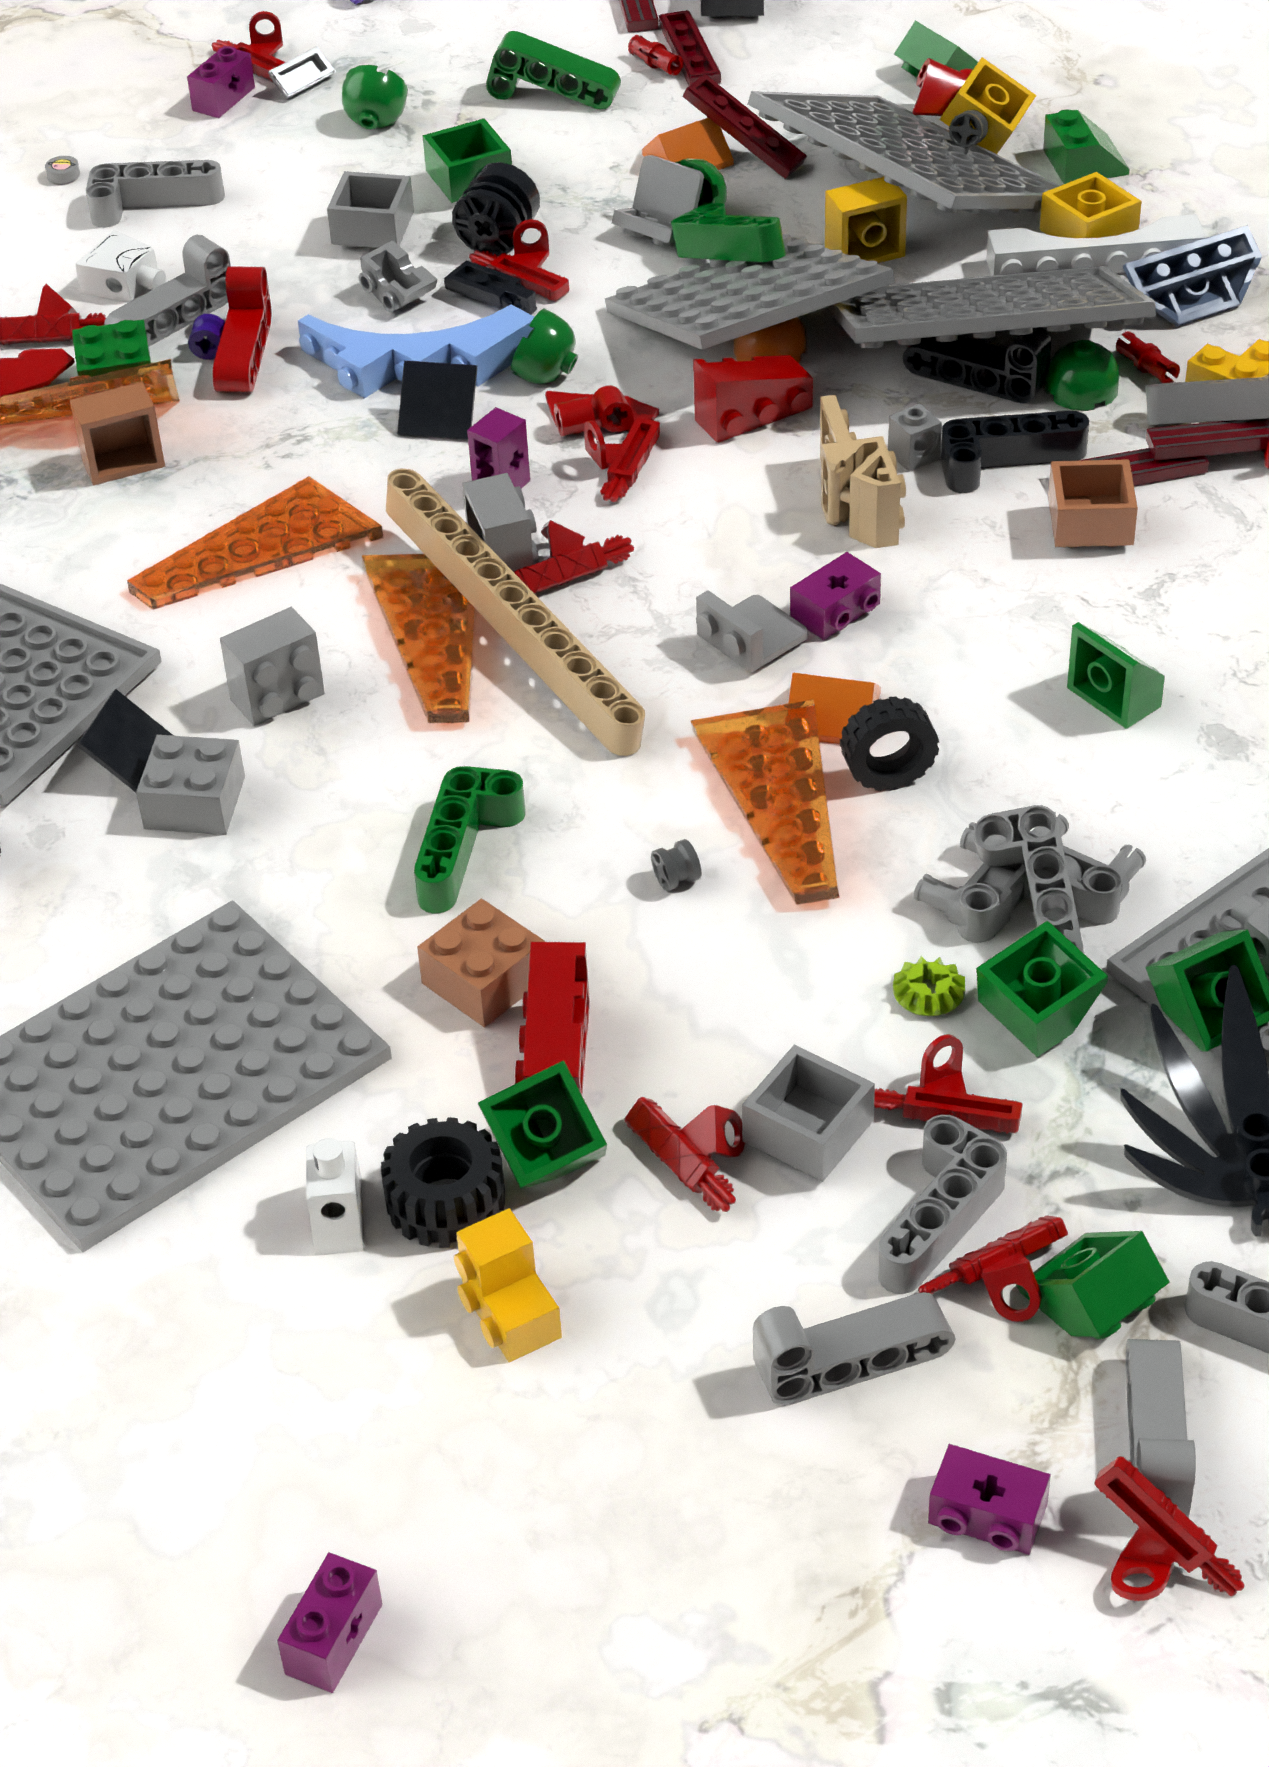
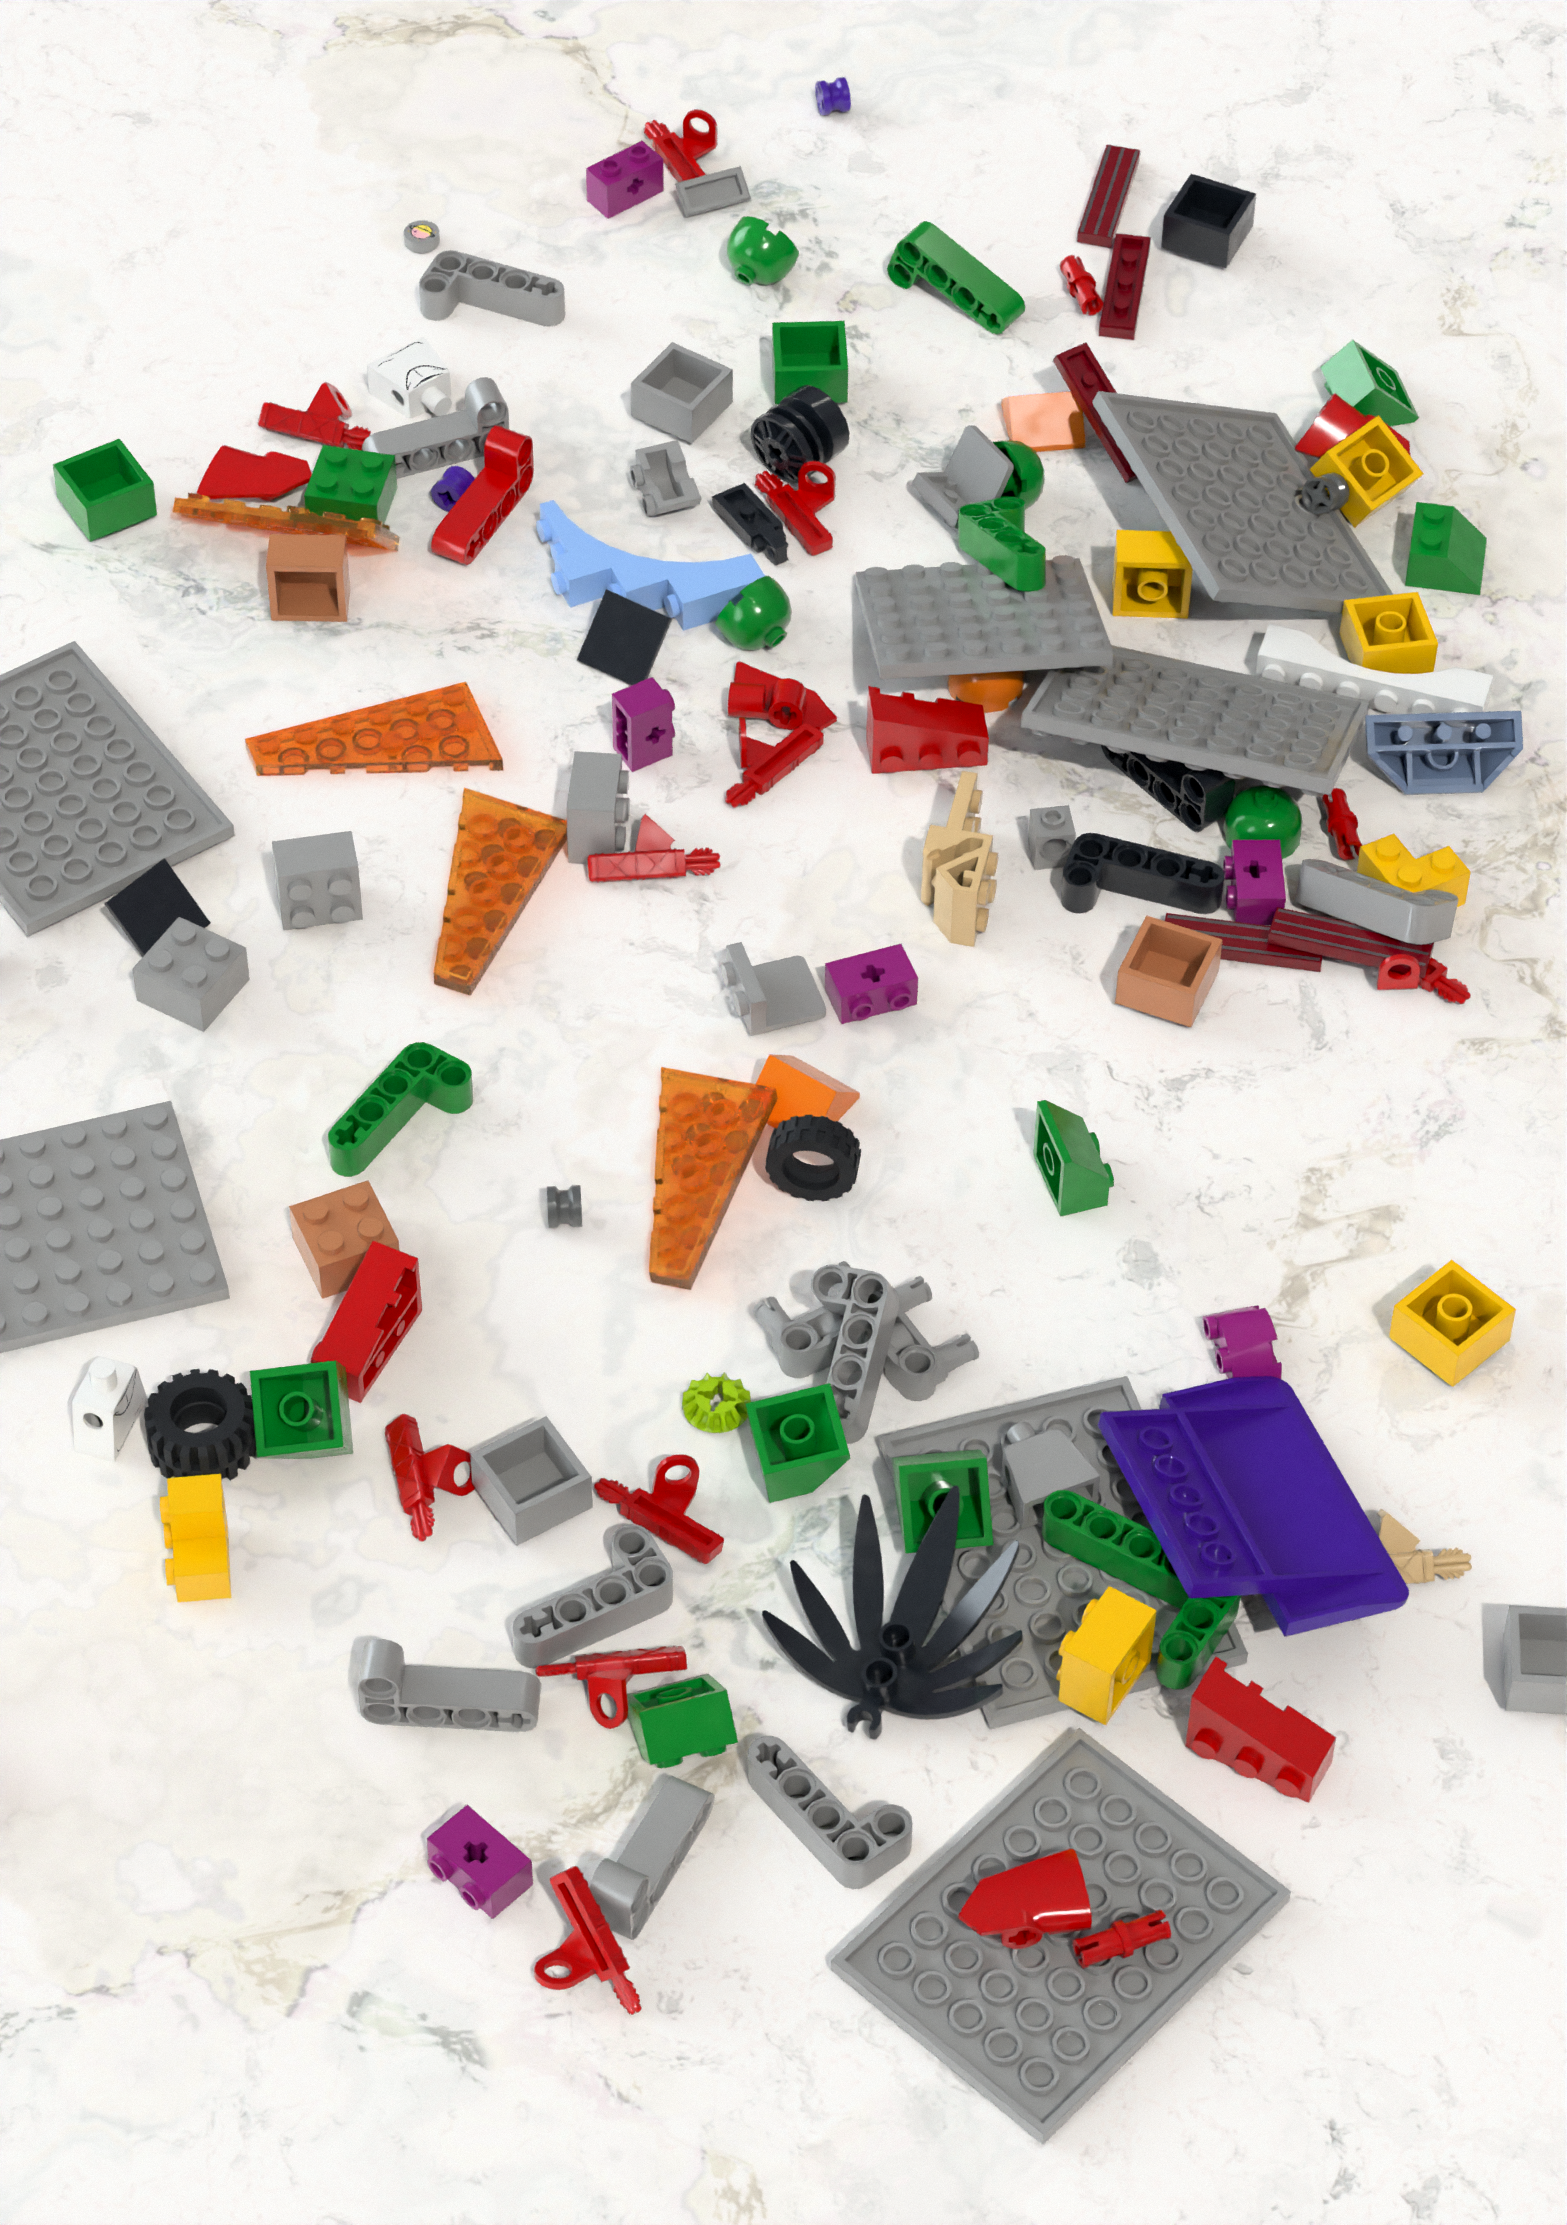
camera: 20 degrees right, 5 degrees up
(516, 613) = (561, 898): tan beam -> none
(1114, 417) = (1255, 880): none -> magenta brick

